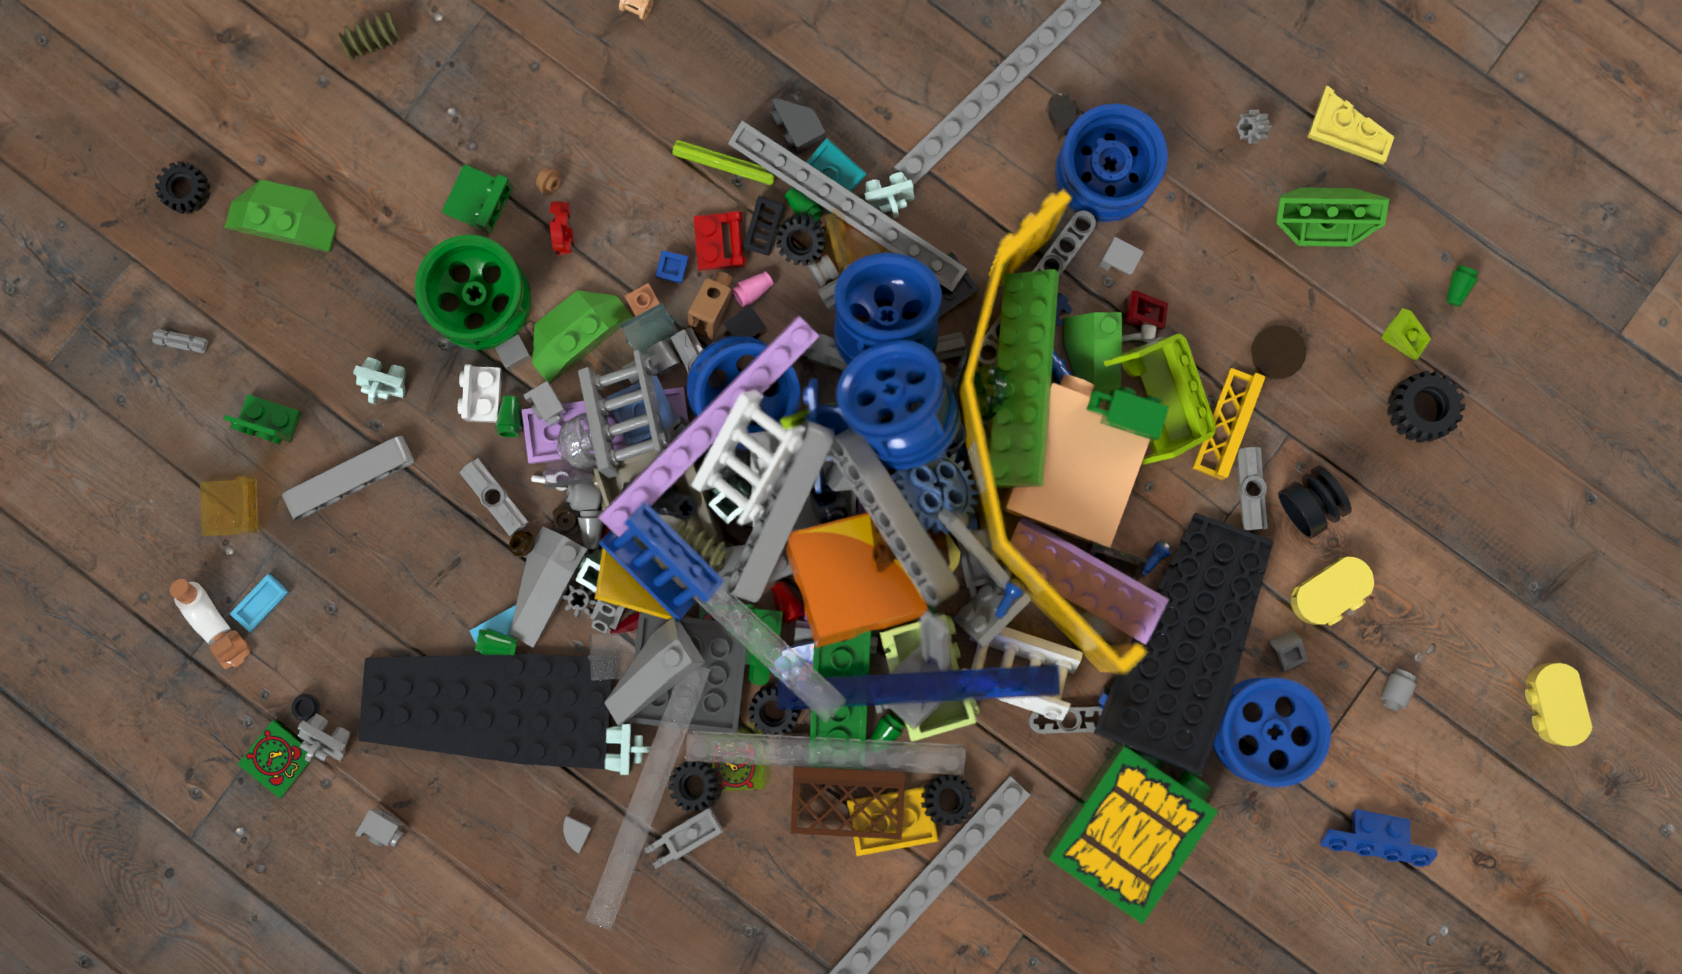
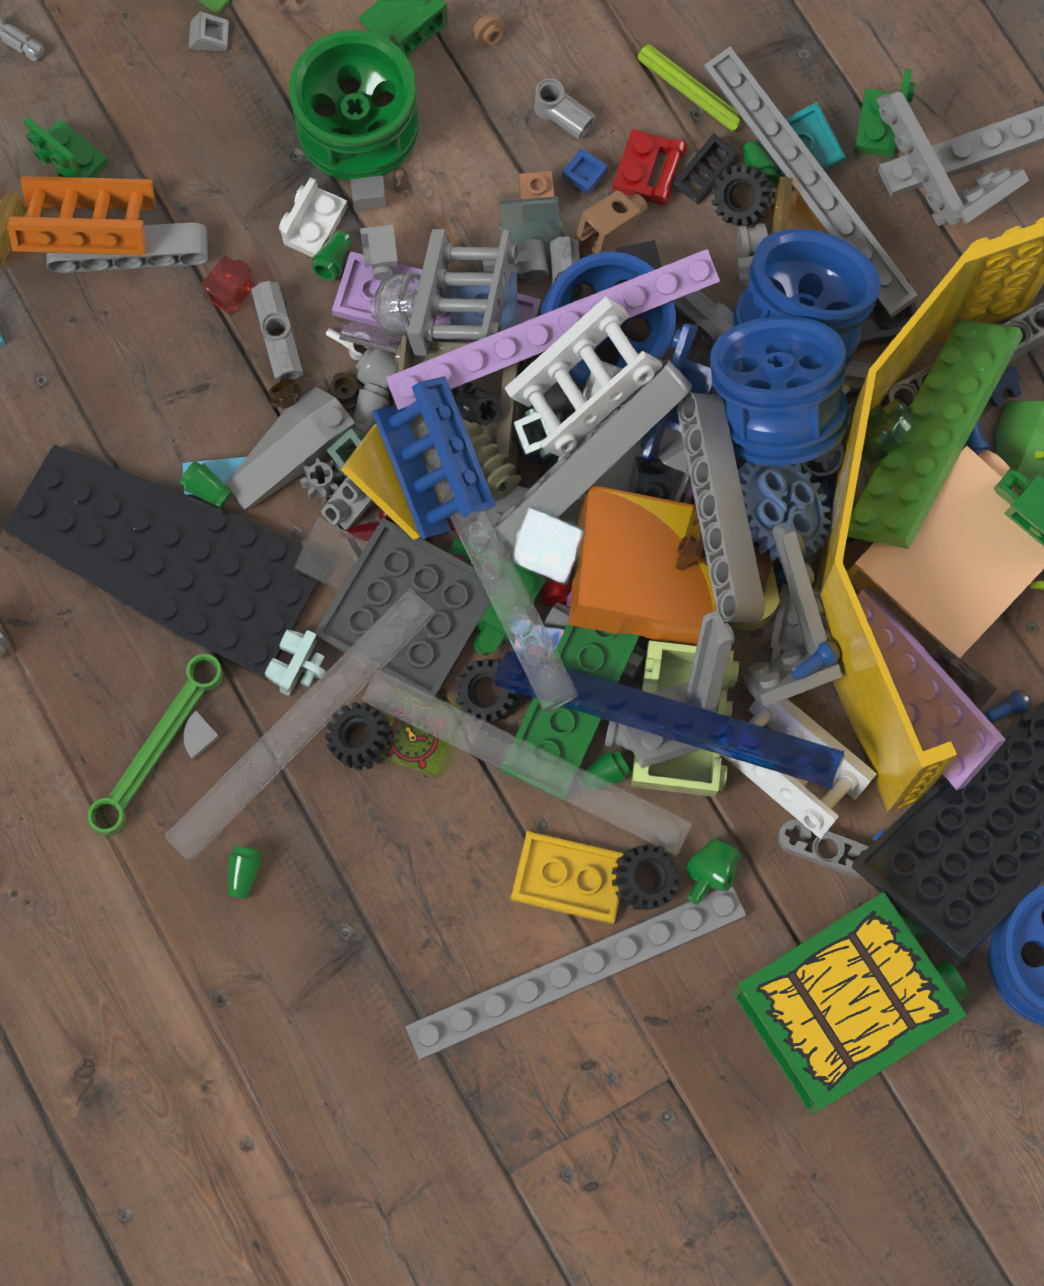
camera: 25 degrees right, 10 degrees down
(309, 490) = (81, 234): none -> orange fence
(330, 272) = (208, 32): none -> light grey slope
(378, 384) = (208, 164): light aqua hips -> none
(440, 474) = (228, 284): none -> clear red brick
(547, 854) = (155, 745): none -> bright green piece
(561, 235) = (478, 79): red plate -> none
(575, 330) = (446, 196): bright green wedge -> none
(637, 223) = (564, 110): none -> light grey piece
(654, 920) = (242, 870): none -> green cone
(656, 669) = (379, 582): light grey wedge -> none
(687, 836) = (322, 792): light grey hinge -> none
(752, 289) = (664, 228): bright pink cone -> none
(776, 594) = (548, 545): none -> clear light blue piece
(800, 124) = (793, 78): dark grey slope -> none
(843, 778) = (540, 802): reddish brown fence -> none
(881, 128) = (873, 133): none -> green bracket
(890, 197) = (864, 192): light aqua hips -> none
(973, 175) = (927, 169): none -> light grey bracket
(993, 771) = (712, 868): none -> green piece

